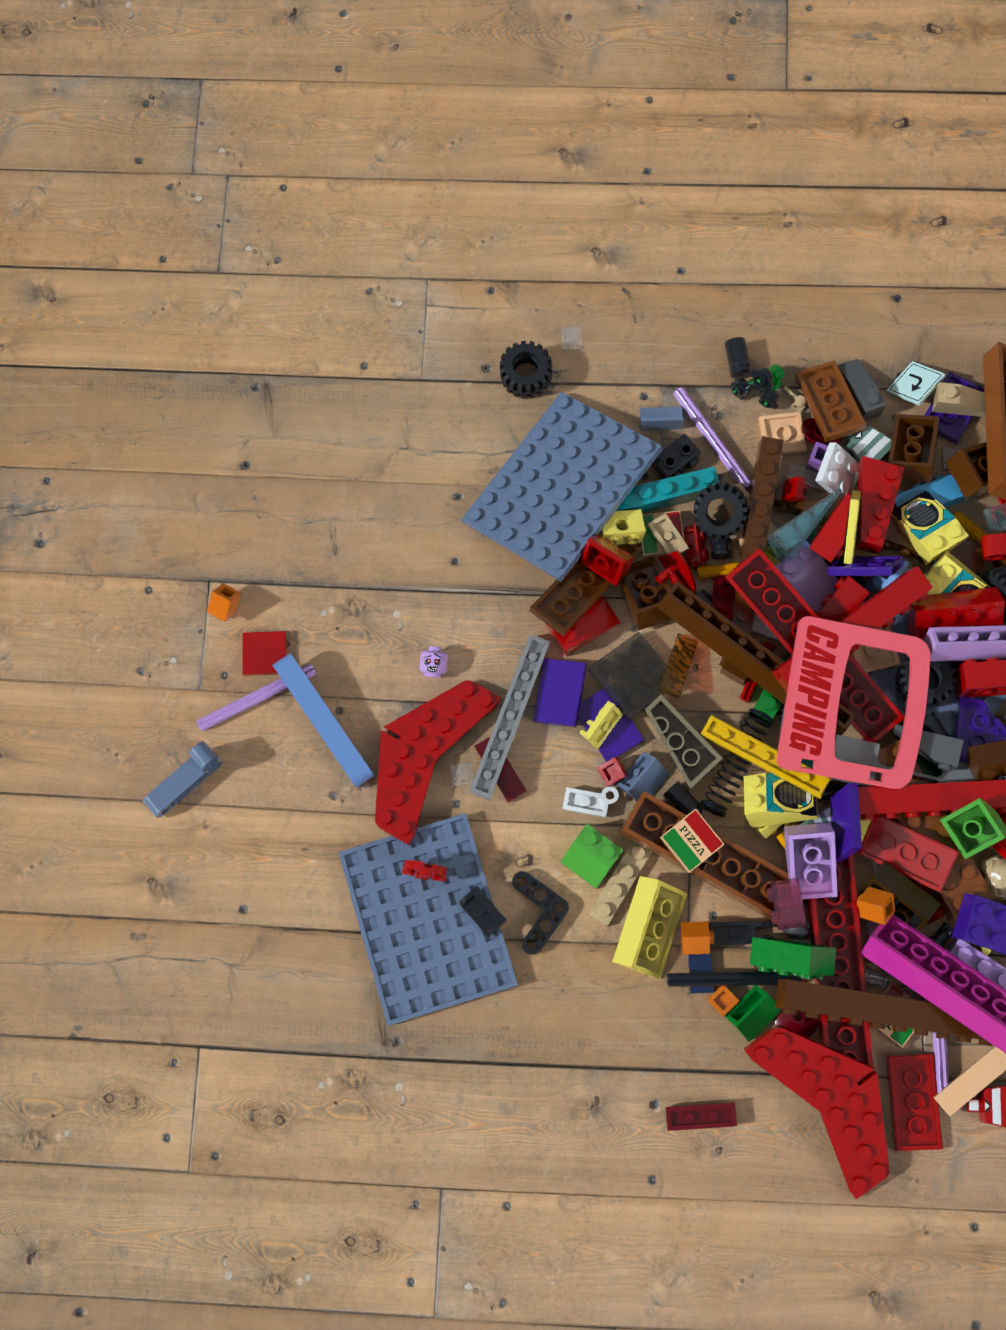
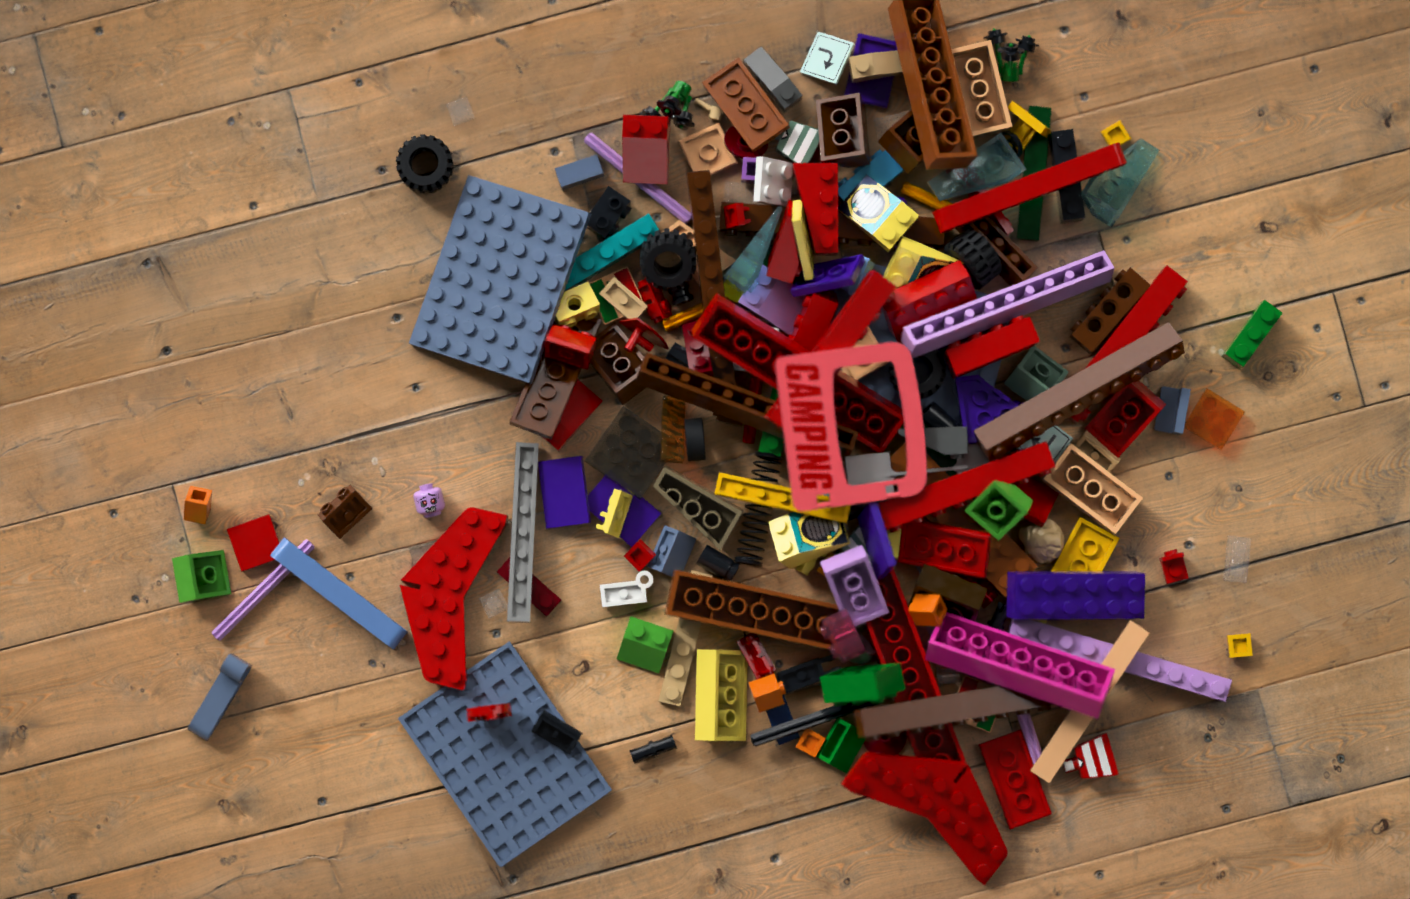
camera: 30 degrees left, 10 degrees up
(205, 667) = (201, 576): none -> bright green slope
(353, 649) = (344, 511): none -> reddish brown bracket
(546, 905) = (615, 705): black beam -> none
(569, 958) = (653, 749): none -> black pin
(692, 841) = (736, 603): tile -> none
(694, 900) = (756, 656): none -> red hinge
(696, 680) = (695, 439): none -> black tyre
(701, 1116) = (820, 856): dark red plate -> none
(729, 409) = (645, 149): none -> red slope
(738, 357) = (638, 84): black piece -> none

